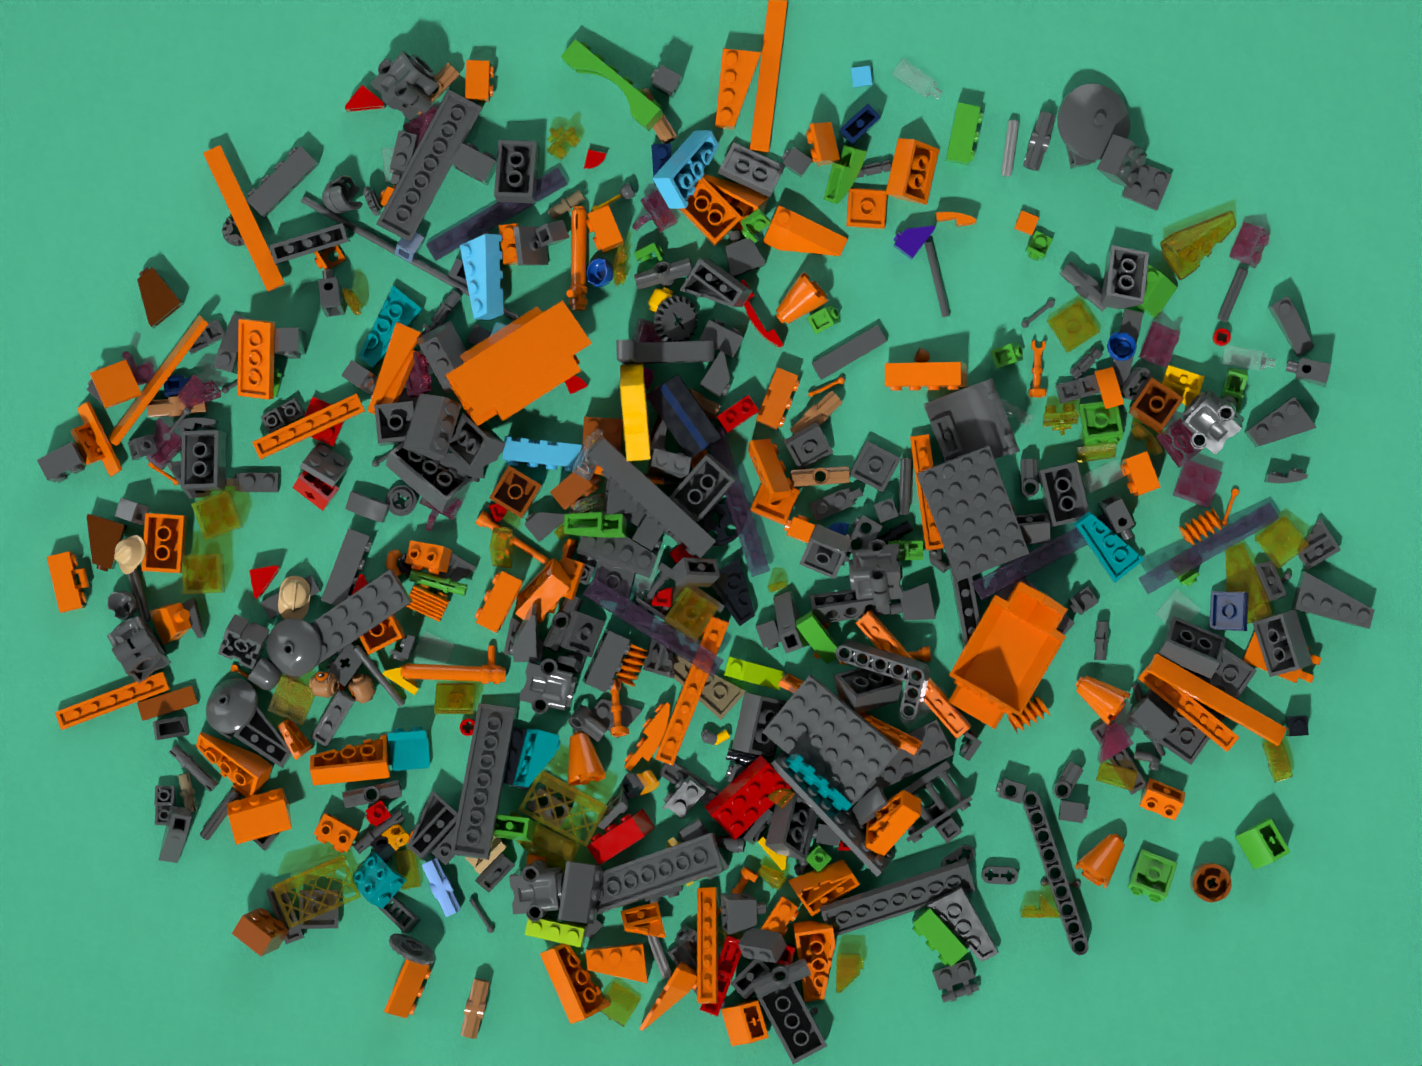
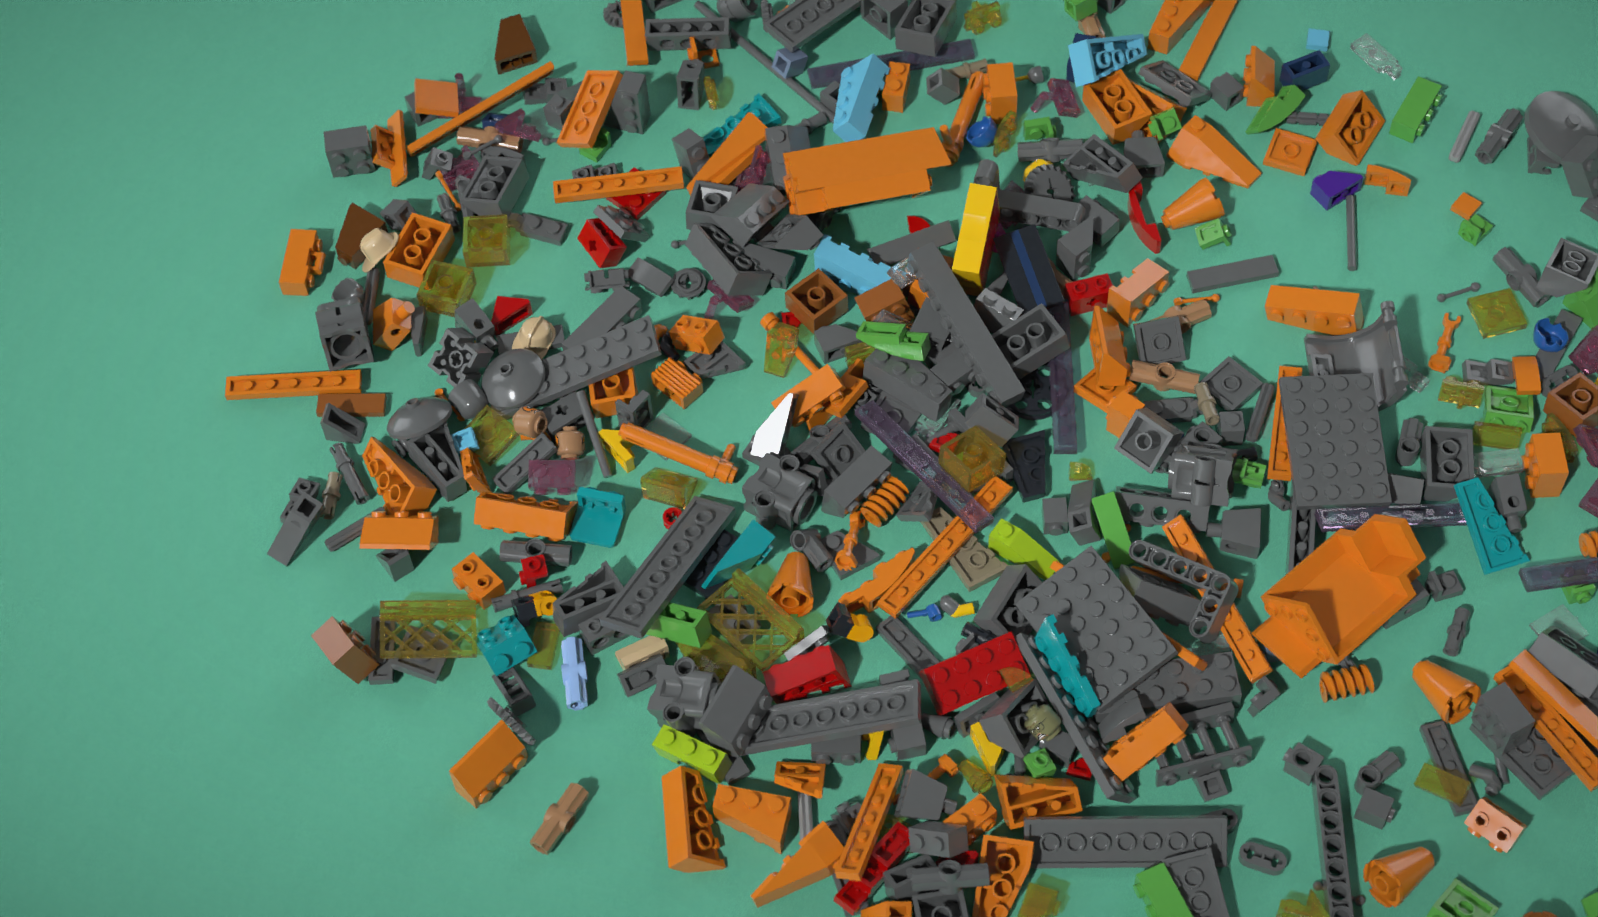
camera: 25 degrees right, 30 degrees down
(171, 492) = (448, 213): none -> dark grey axle
(236, 600) = (476, 322): none -> dark grey torso
(276, 714) = (464, 439): none -> medium azure tile
(340, 520) = (598, 282): none -> dark grey hinge
(360, 725) = (552, 476): none -> clear pink bracket
(460, 589) = (704, 365): bright green pin -> none
(490, 929) = (613, 738): dark grey hinge -> none
(498, 601) = (751, 400): orange brick -> none
(528, 247) = (914, 90): dark grey plate -> none
(575, 406) = (901, 247): none -> dark grey tile
(594, 159) = (1010, 41): red tile -> none
(619, 1004) = (736, 865): clear yellow piece -> none
(684, 797) = (898, 653): bracket -> none
(698, 747) = (931, 611): none -> blue hand
(812, 829) = (1042, 722): none -> olive head
(861, 496) = (1206, 403): none -> dark tan pin
(1007, 355) = (1413, 317): bright green bracket -> none
(1086, 363) = (1504, 349): dark grey axle -> none
(1113, 742) = (1448, 740): clear pink slope -> none

